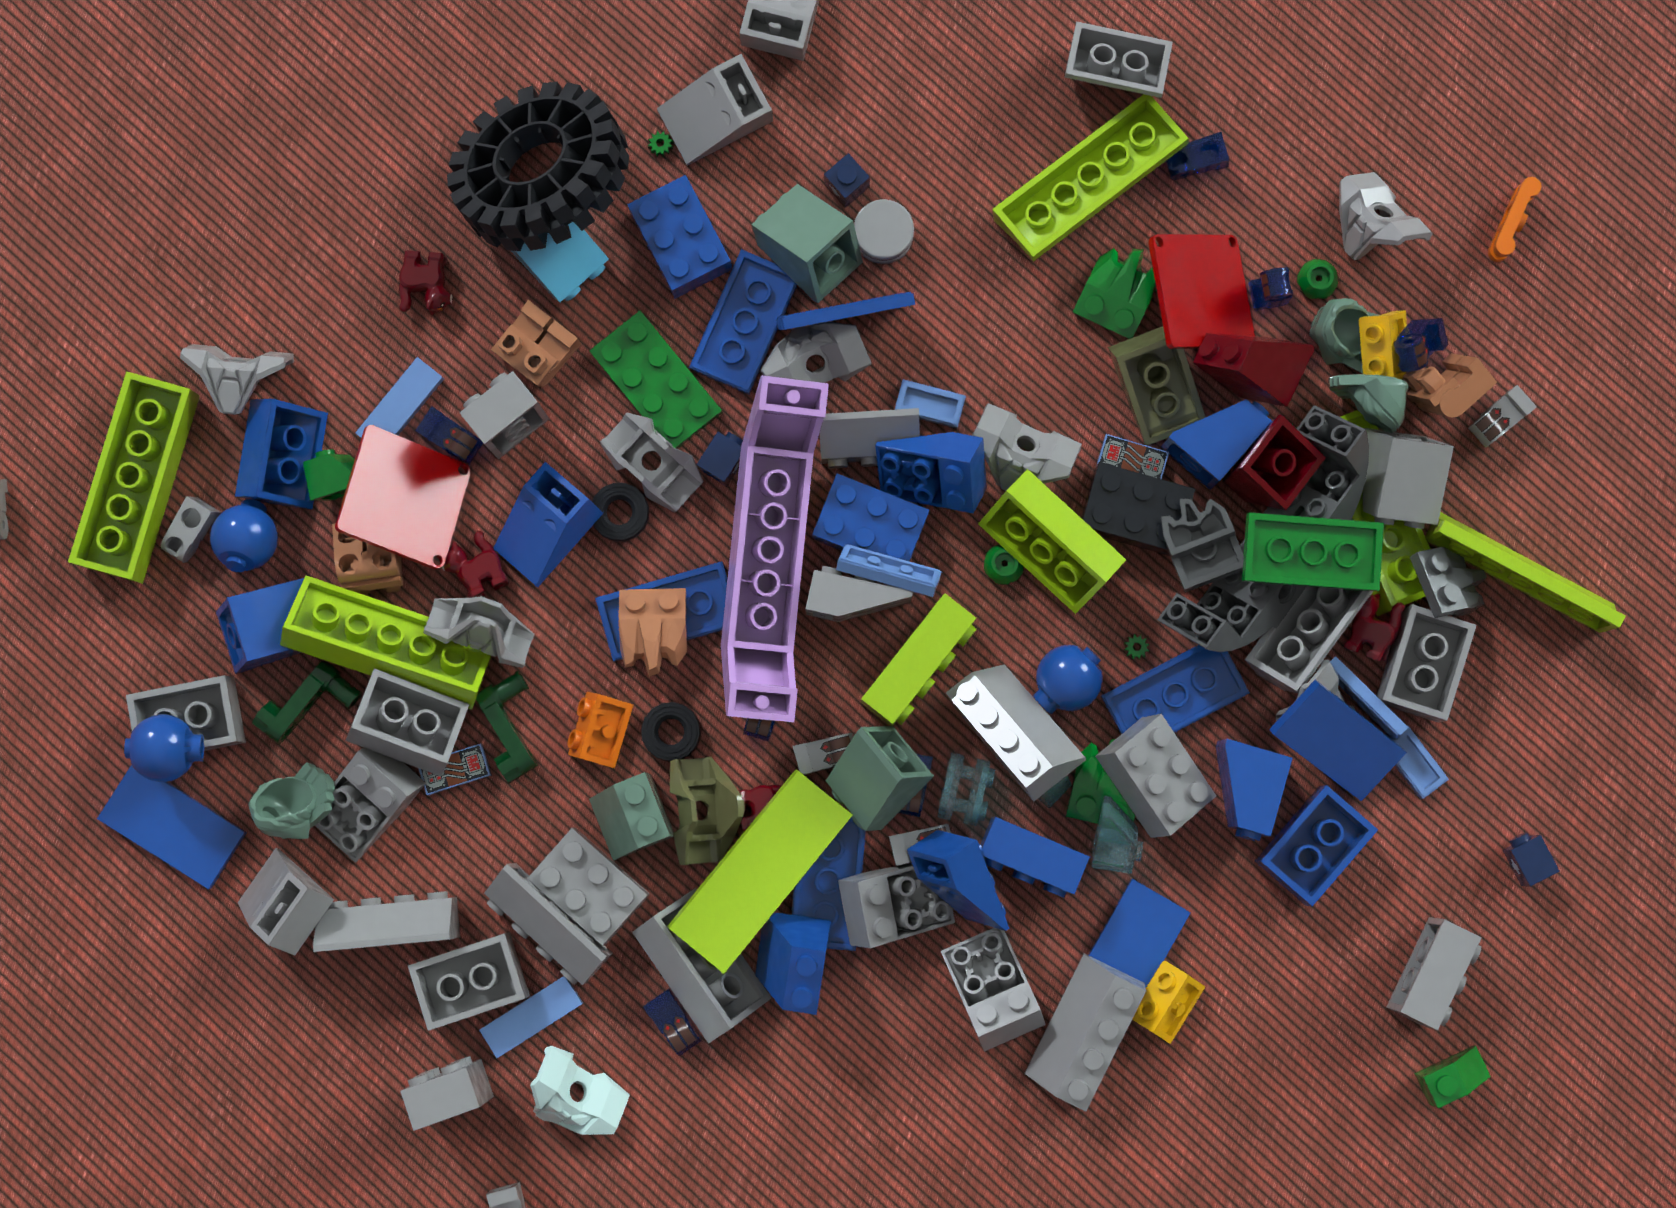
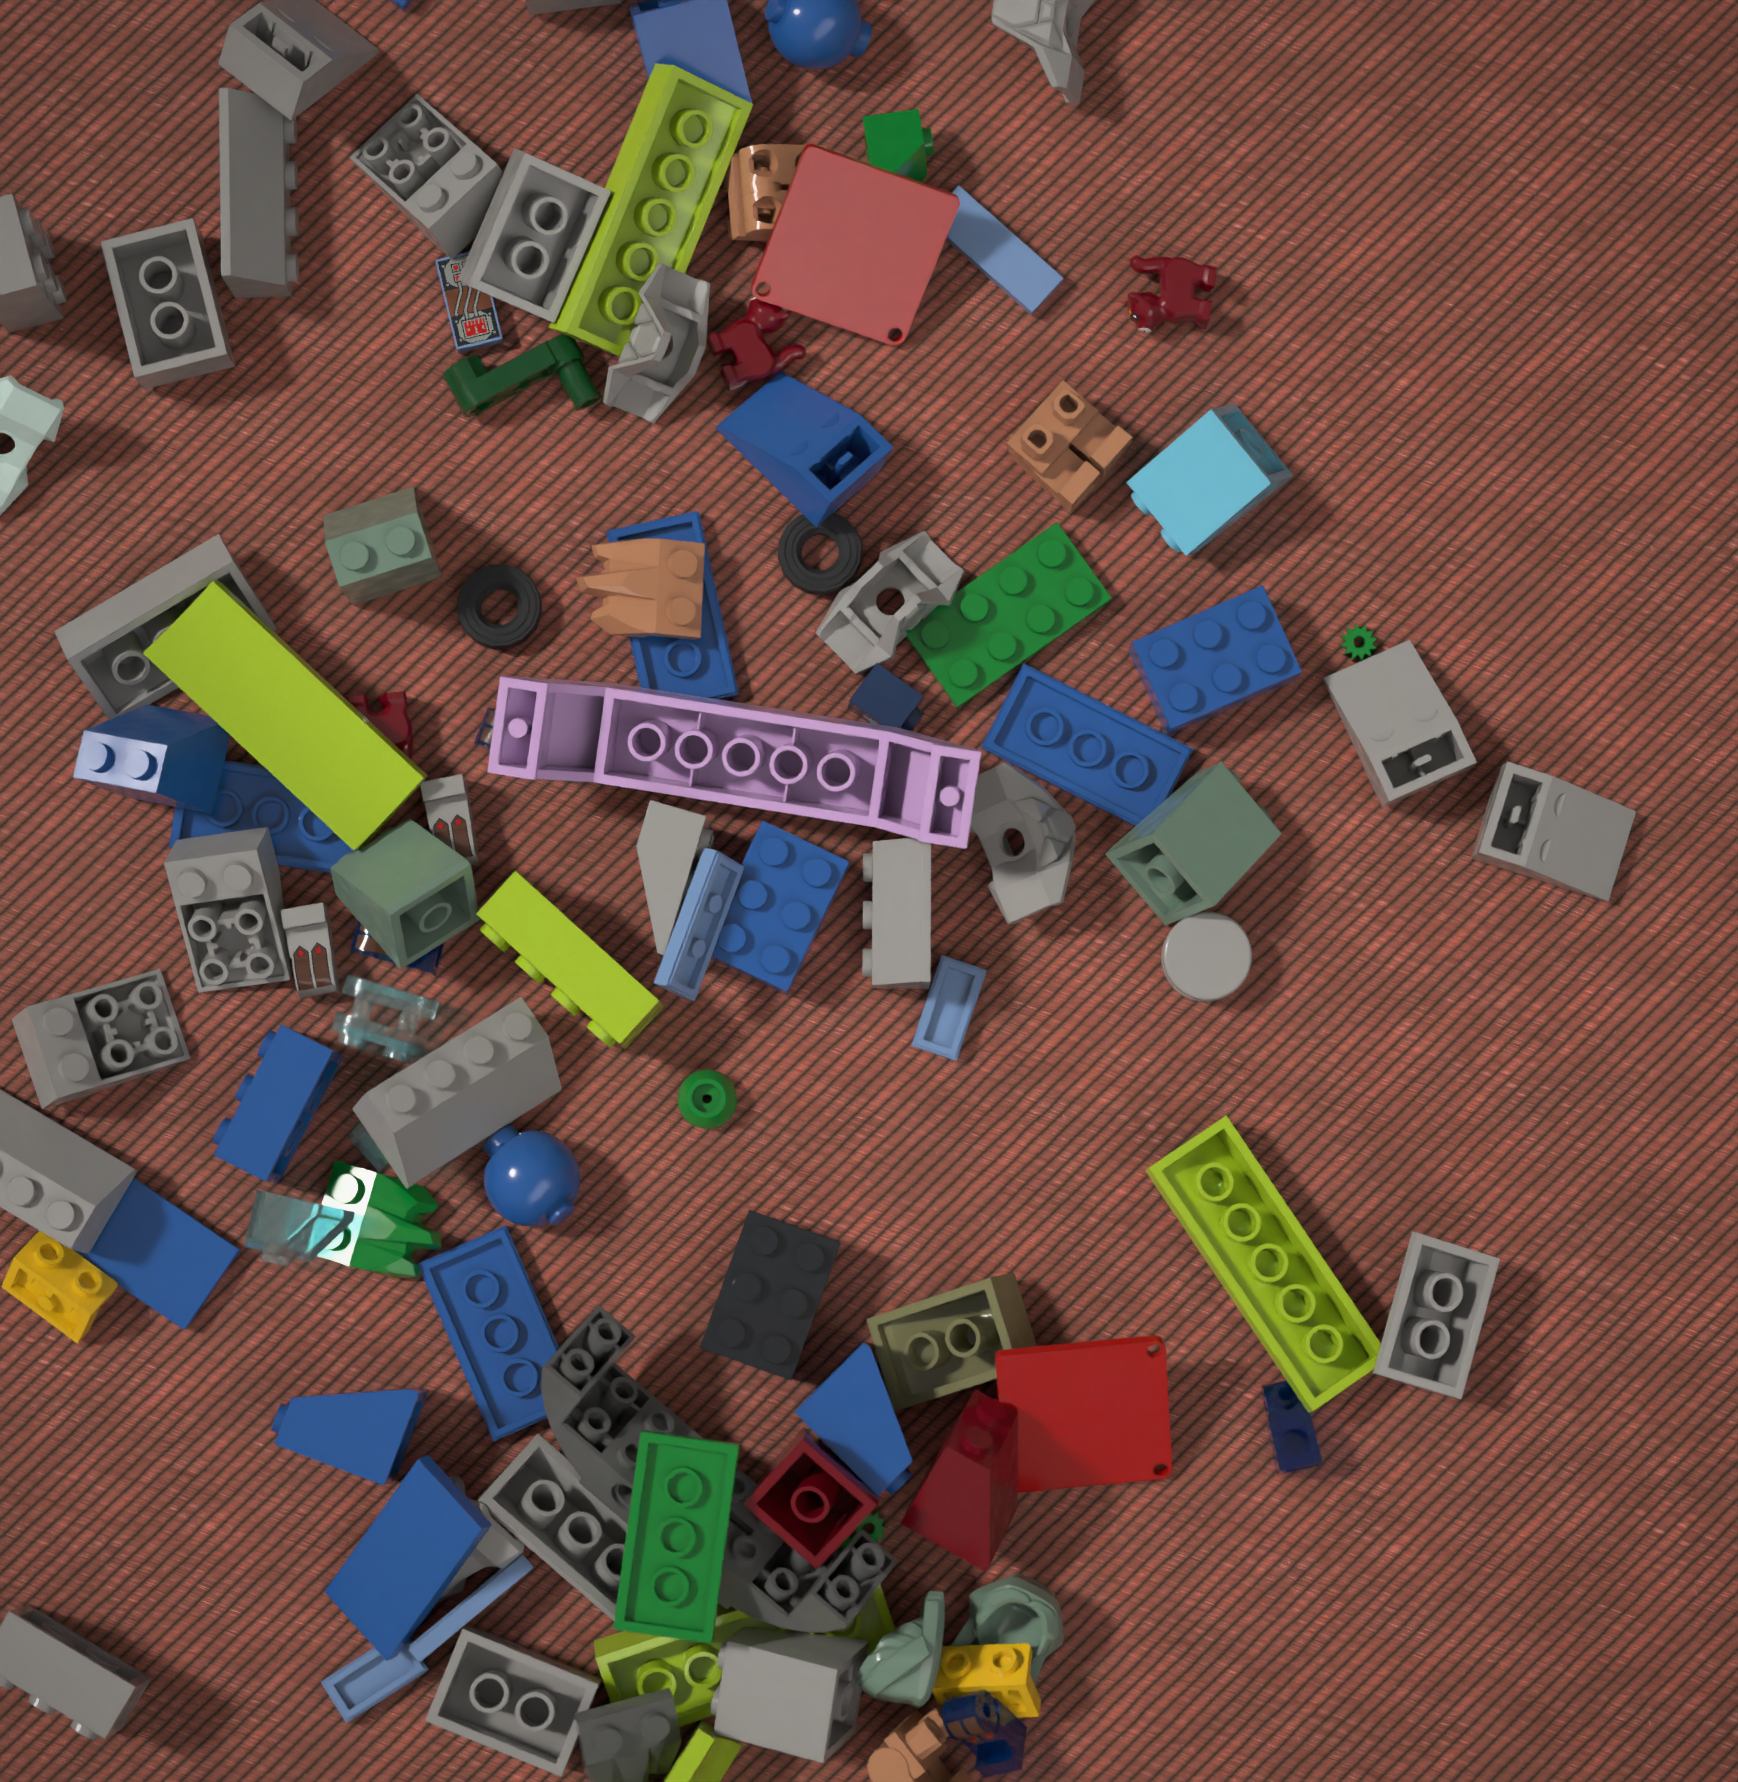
camera: 90 degrees right, 0 degrees up
(274, 449) = (942, 71): blue slope -> none
(280, 722) = (552, 62): dark green beam -> none
(293, 804) = (434, 73): sand green hair -> none
(449, 436) = (945, 317): clear blue leg -> none
(504, 414) = (963, 391): light grey brick -> none
(531, 1016) = (114, 389): medium blue tile -> none
(546, 924) = (240, 417): light grey slope -> none
(578, 180) = (1254, 459): black tyre -> none
(588, 886) = (288, 477): light grey brick -> none
(599, 729) = (509, 506): orange bracket -> none
(673, 1022) = (89, 583): clear blue leg -> none
(706, 782) = (423, 652): olive piece -> none
(845, 310) = (1086, 888): blue tile -> none
(846, 180) = (1284, 907): dark blue brick -> none
(934, 470) = (844, 1004): blue slope -> none
(958, 875) = (260, 992): blue slope -> none
(1048, 454) = (881, 1097): light grey piece -> none
(1051, 541) = (728, 1165): lime brick -> none
(1117, 293) = (1094, 1291): green plate -> none
(1131, 641) = (563, 1283): green piece -> none
(1133, 456) = (847, 1297): tile -> none
(1156, 776) = (378, 1290): light grey brick -> none
(1202, 544) = (704, 1379): dark grey plate -> none
(1271, 289) = (1083, 1519): clear blue leg -> none
(1316, 845) = (262, 1516): blue brick -> none
(1318, 289) = (1082, 1588): green plate -> none
(1363, 226) = (1163, 1663): light grey piece -> none
(1377, 632) = (567, 1629): dark red animal -> none

